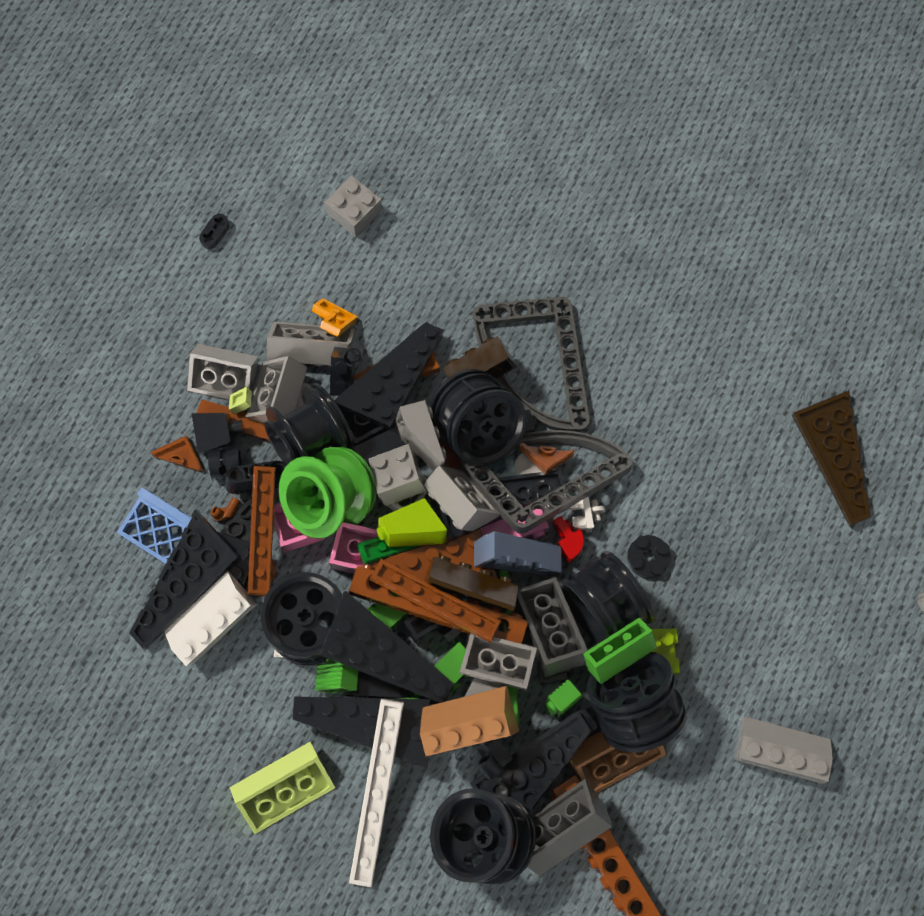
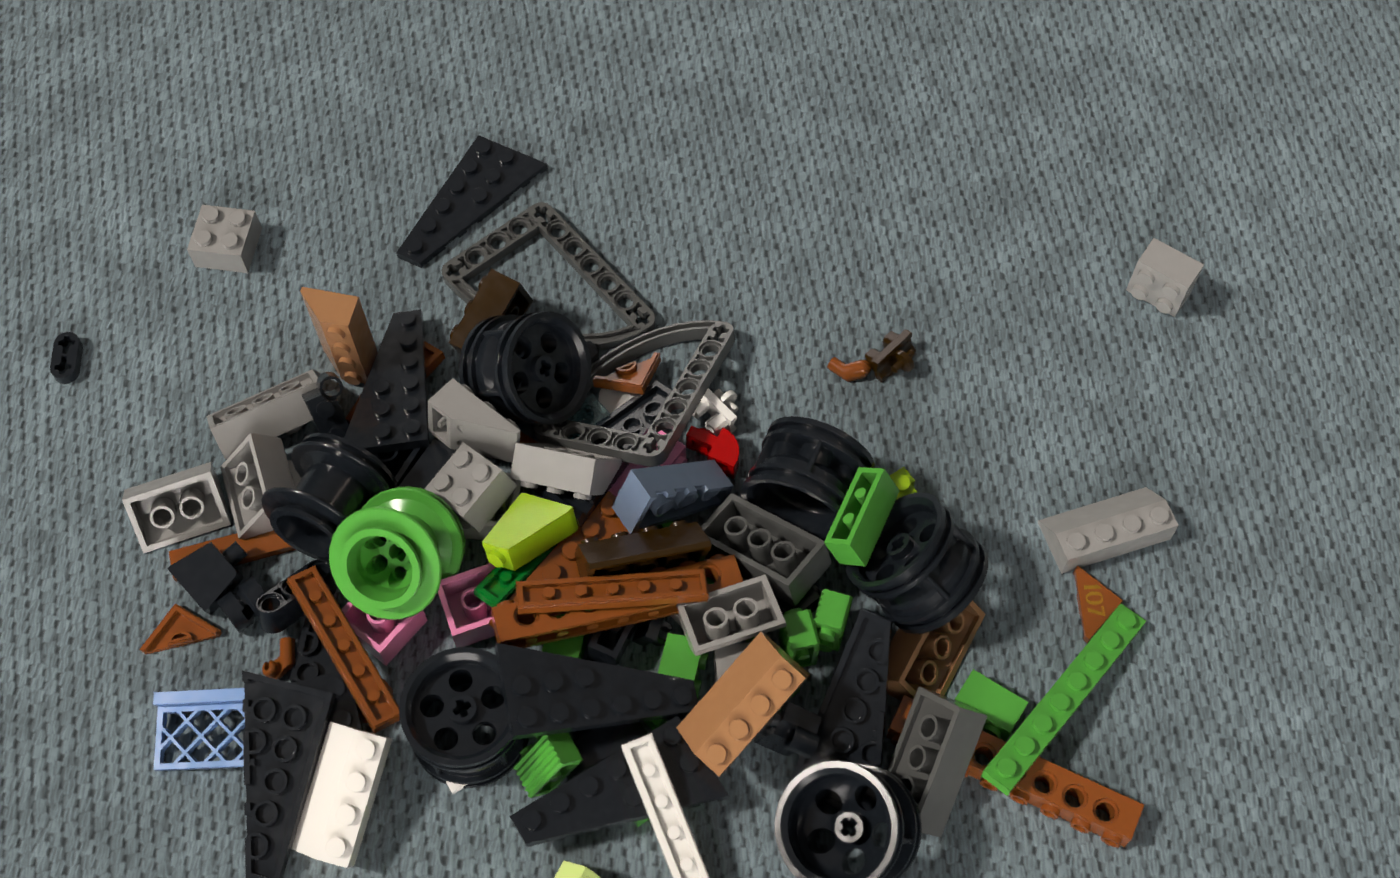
camera: 30 degrees left, 10 degrees down
(240, 400) = (220, 522): yellowish green plate -> none
(335, 318) = (279, 369): light orange plate -> none
(381, 323) = (342, 332): none -> medium nougat slope
(529, 263) = (469, 195): none -> black wing
(535, 697) = (800, 637): none -> bright green brick
(625, 815) = (993, 700): none -> bright green brick
(638, 561) = (822, 401): black plate -> none
(675, 842) = (1062, 700): none -> bright green plate
(689, 539) = (850, 371): none -> dark orange arm
(725, 548) = (895, 356): none -> dark brown hips
(741, 792) = (1094, 602): none -> dark orange tile
(835, 447) = (939, 194): dark brown wing -> none

